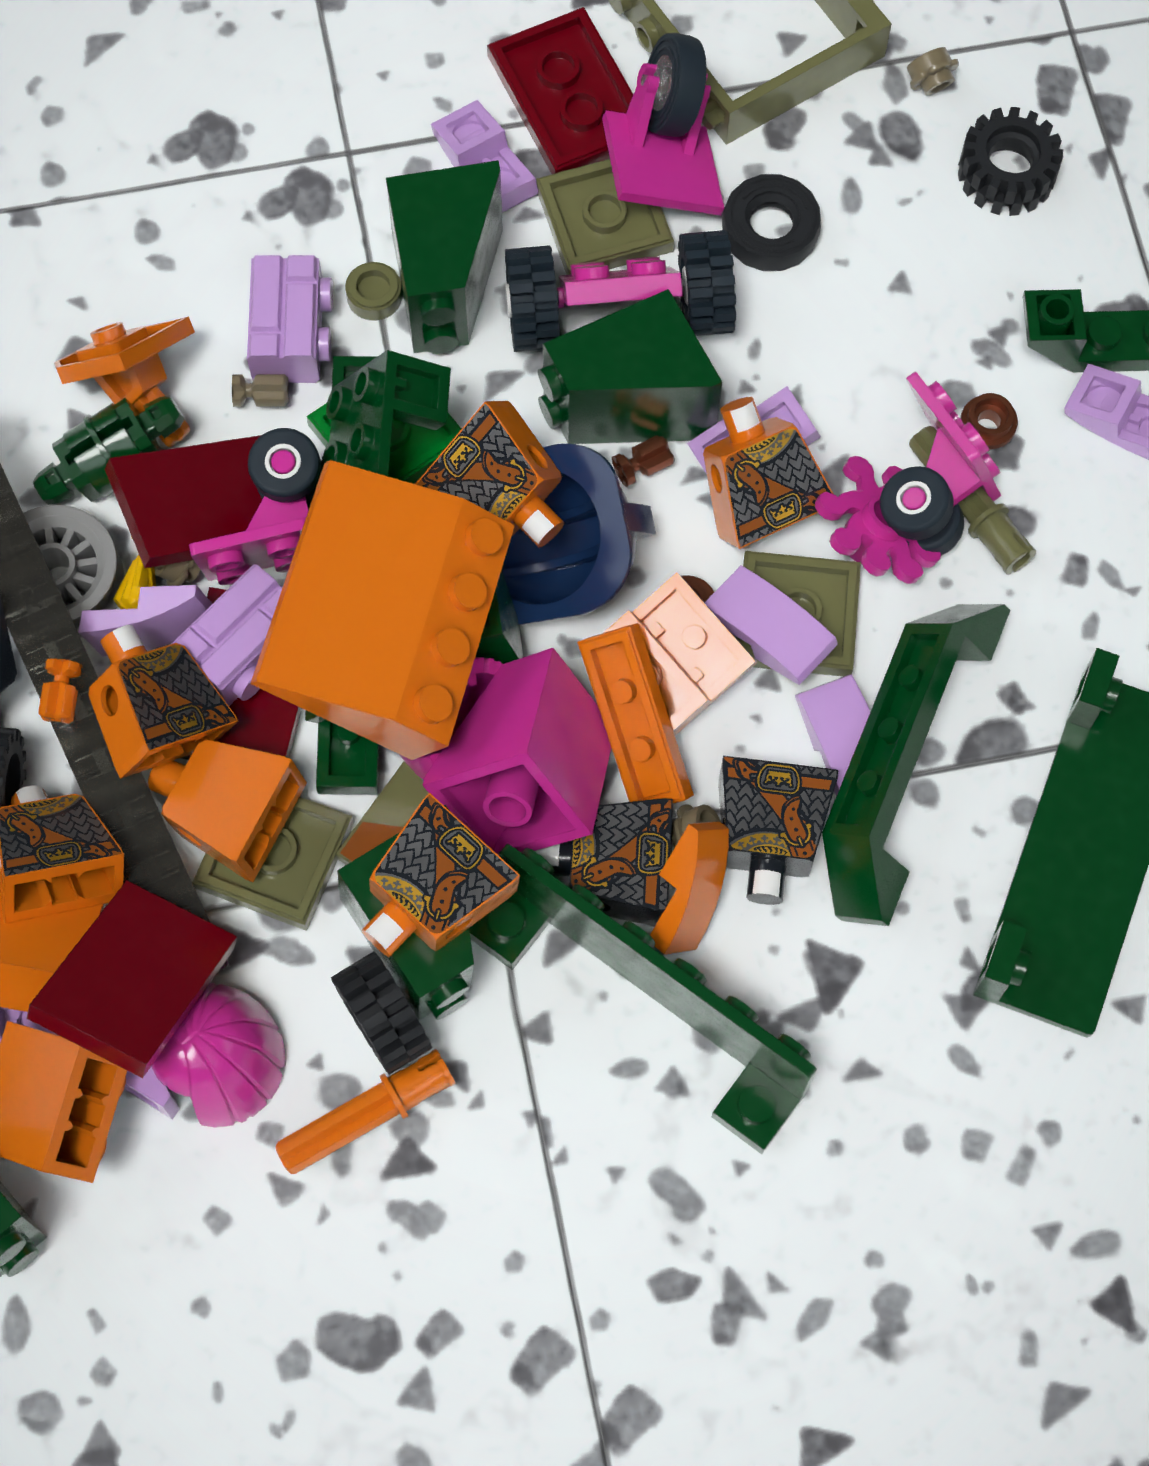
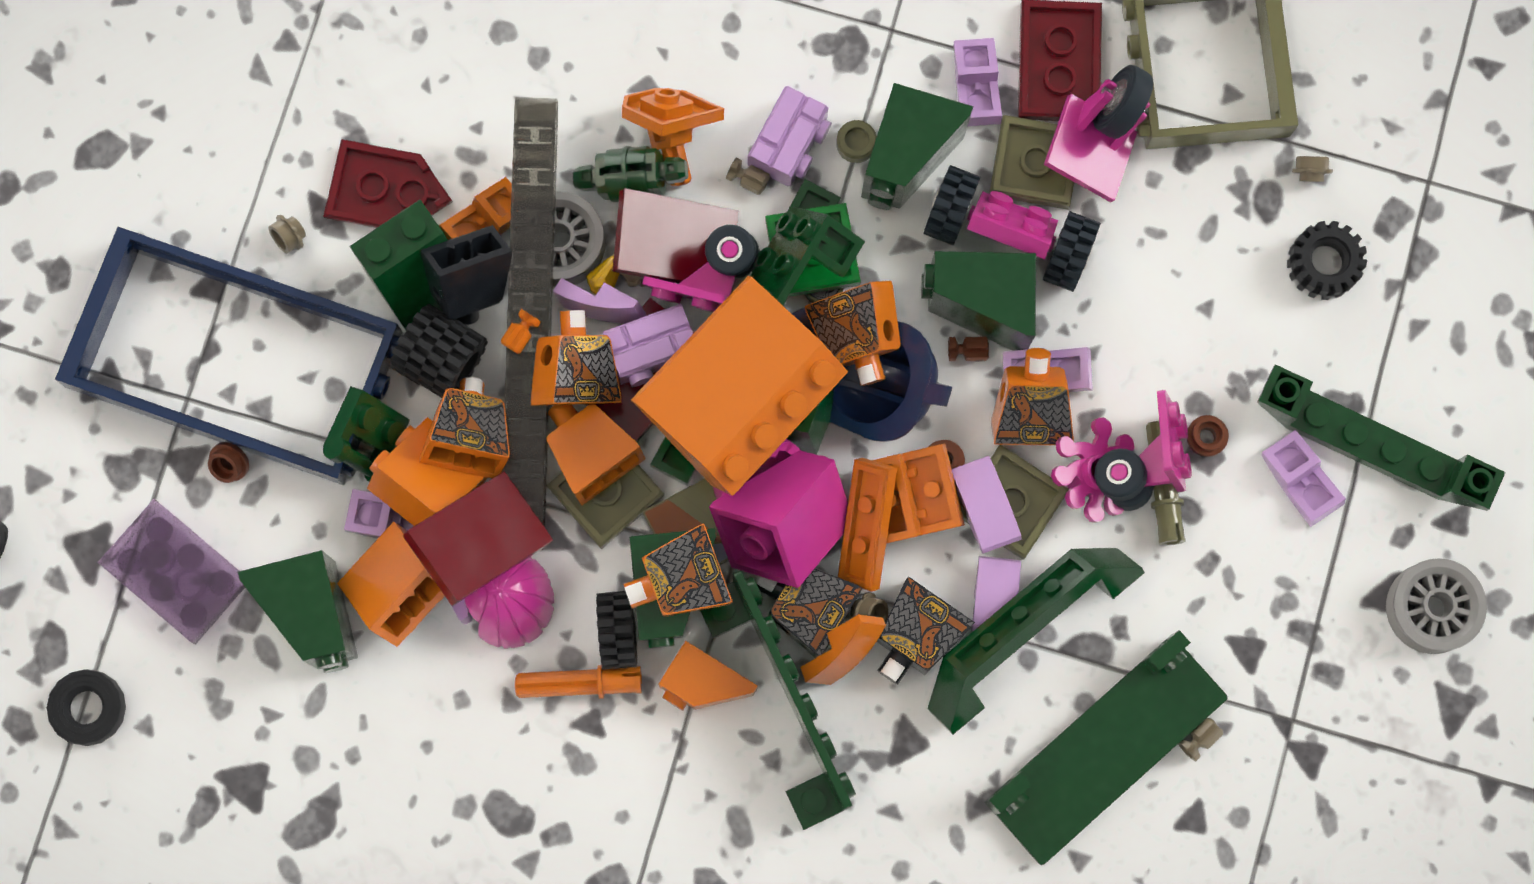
camera: 25 degrees right, 10 degrees up
(529, 1024) = (702, 681): none -> orange slope
(777, 192) = (1153, 201): black tyre -> none

